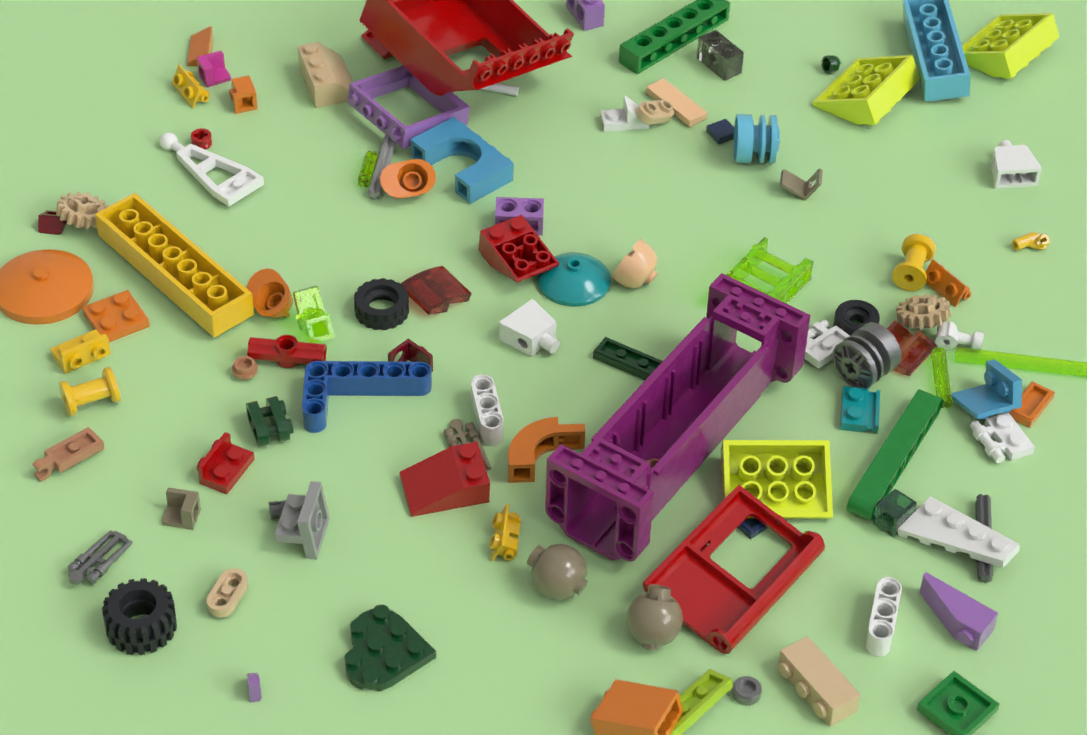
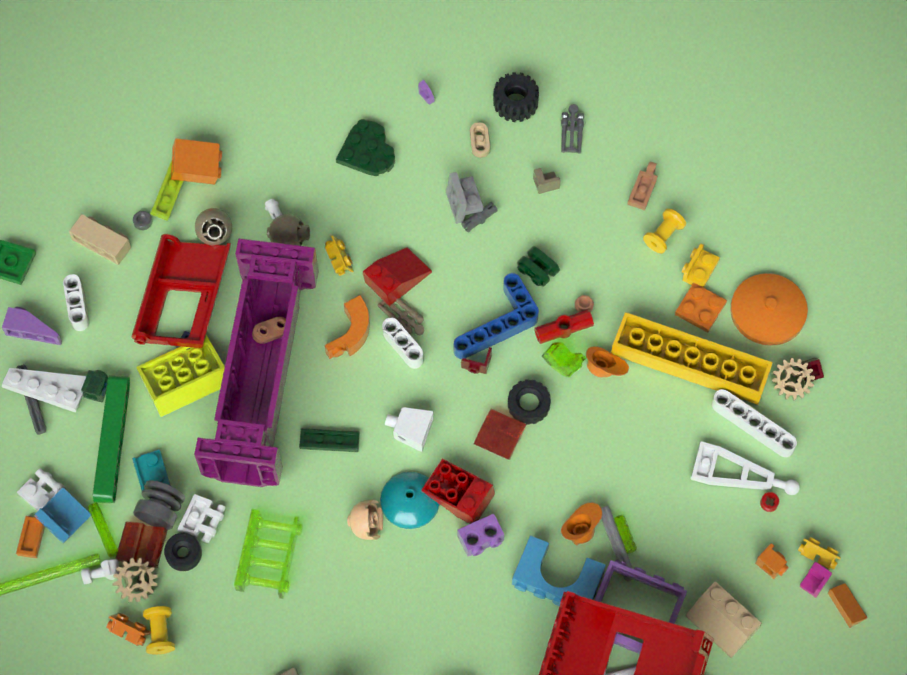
camera: 155 degrees right, 20 degrees up
(156, 189) = (758, 432): none -> white beam
(223, 464) = (542, 225): red bracket -> none
(558, 624) = (273, 209): none -> white pin

